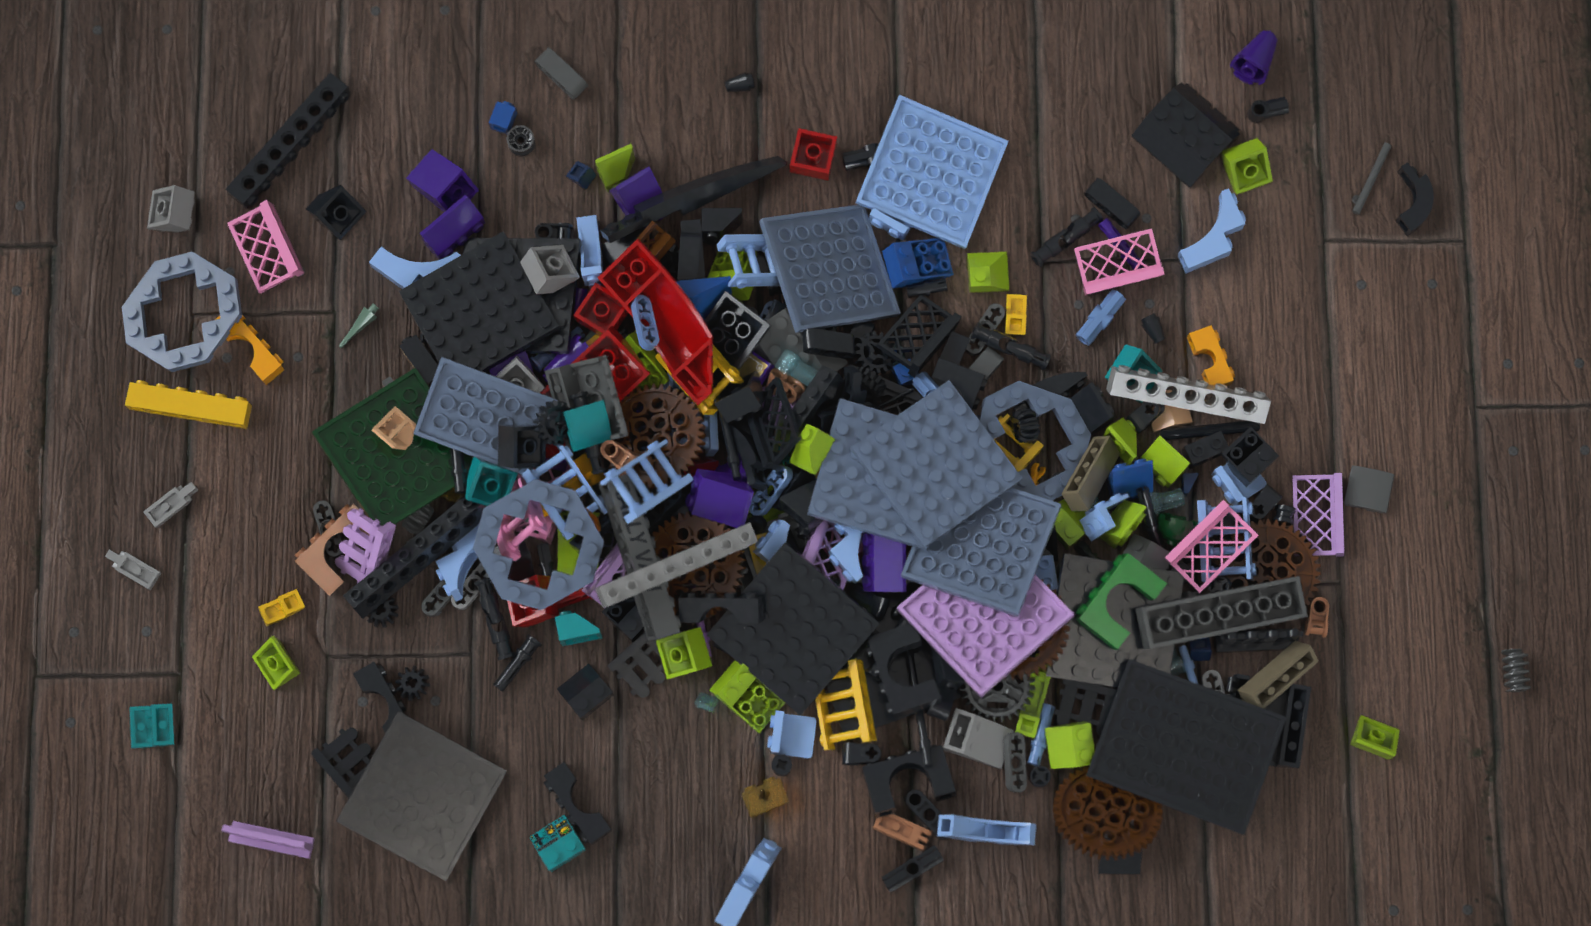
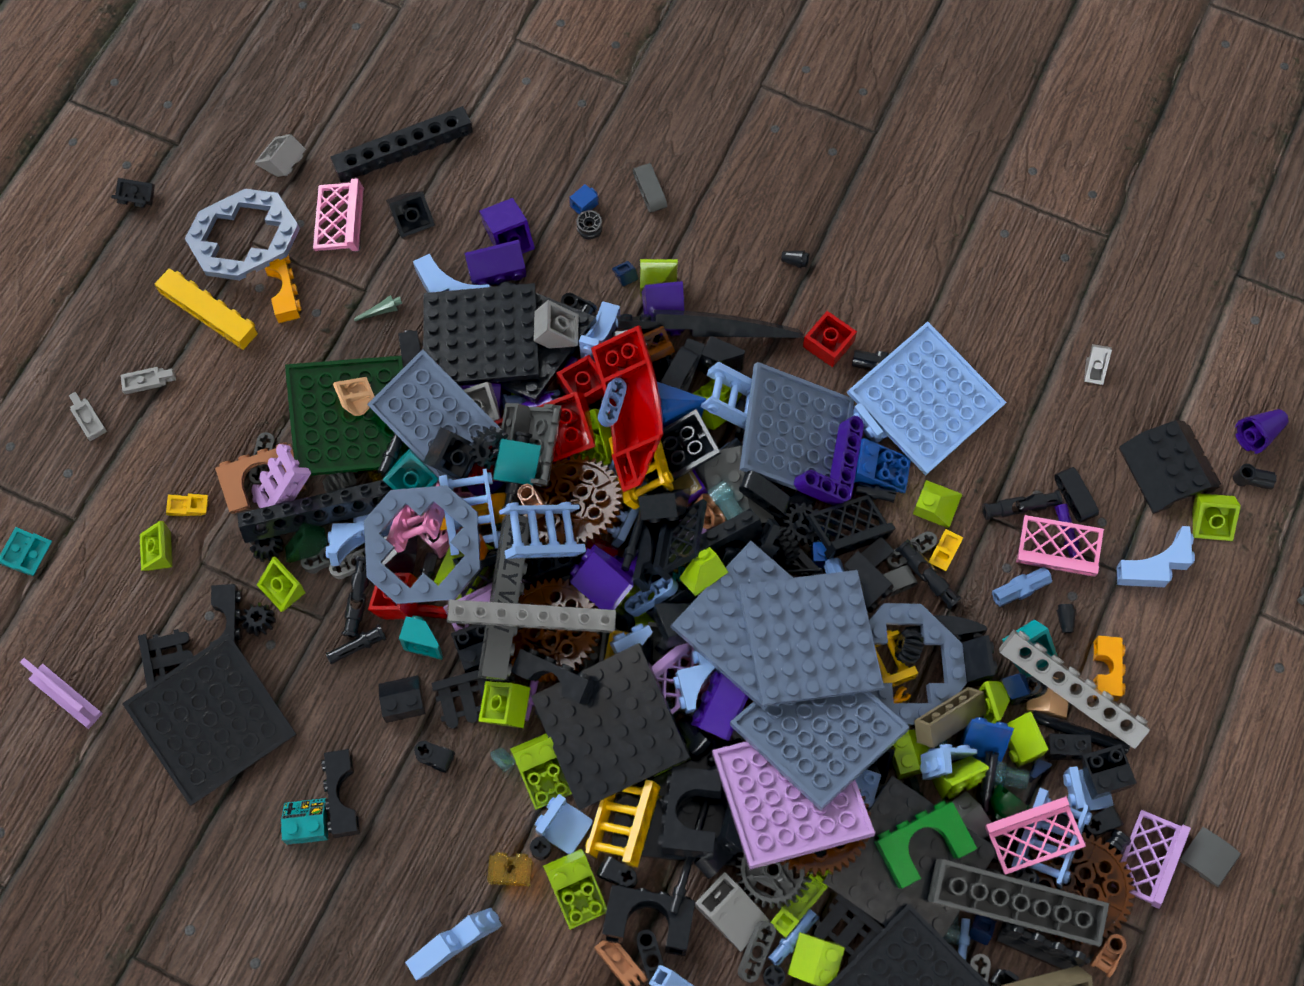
camera: 25 degrees right, 10 degrees down
(44, 318) = (134, 191): none -> black bracket
(415, 642) = (280, 585): none -> lime slope
(418, 591) = (305, 543): none -> clear green slope
(649, 729) = (437, 757): none -> black piece
(830, 785) = (575, 888): none -> lime slope
(892, 299) = (840, 484): none -> dark purple beam
(1077, 62) = (1097, 364): none -> light grey slope
(1136, 416) = (1016, 686): none -> dark blue slope

